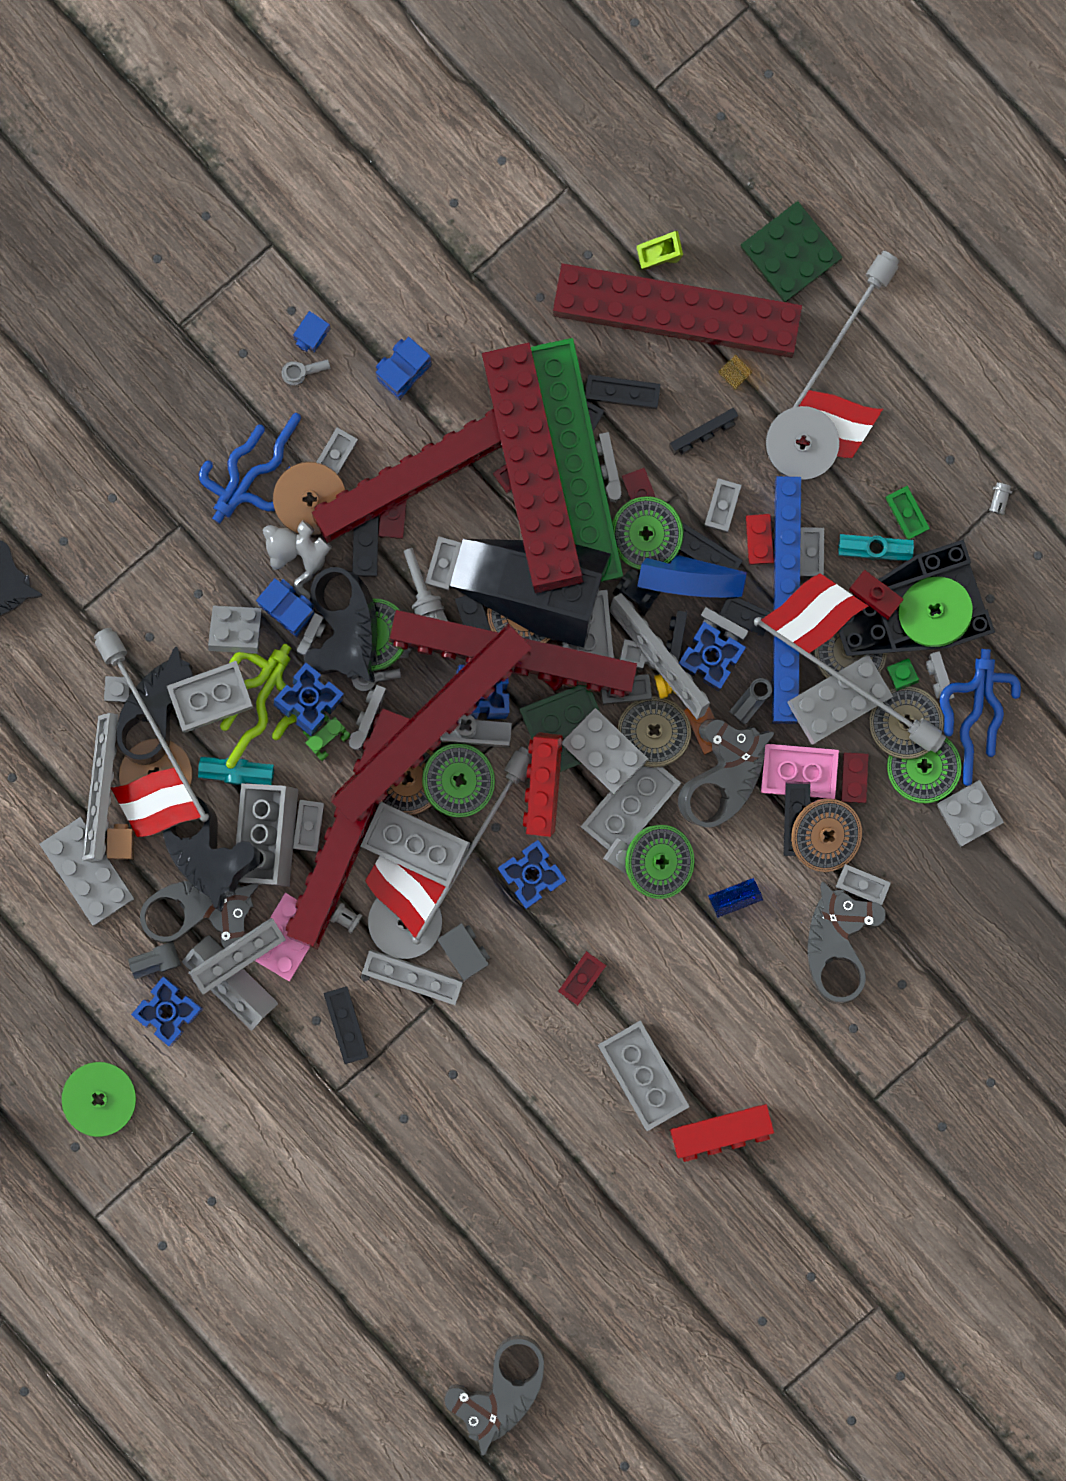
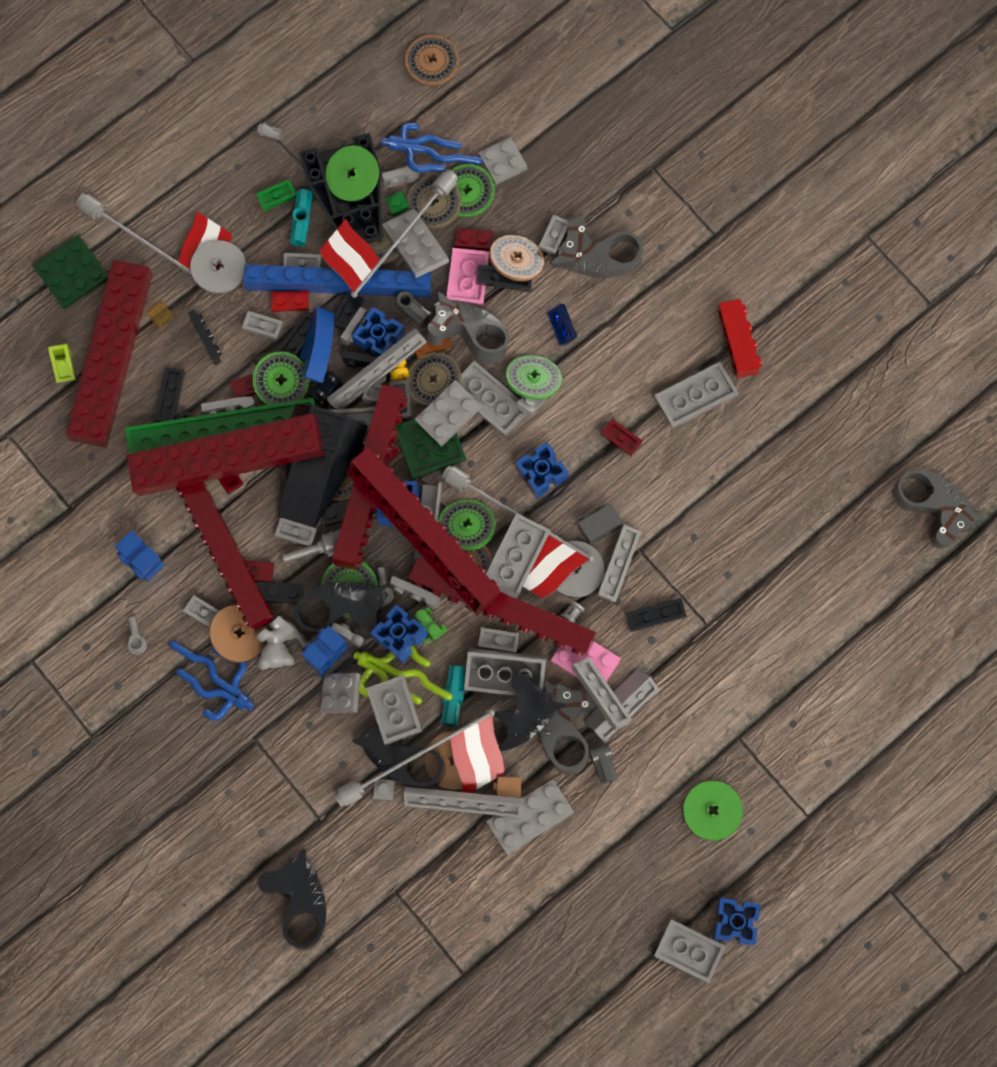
camera: 90 degrees left, 10 degrees down
(152, 1014) = (644, 740): blue brick -> none
(311, 332) = (105, 629): blue brick -> none
(544, 784) = (472, 457): red brick -> none
(876, 594) = (337, 213): dark red plate -> none

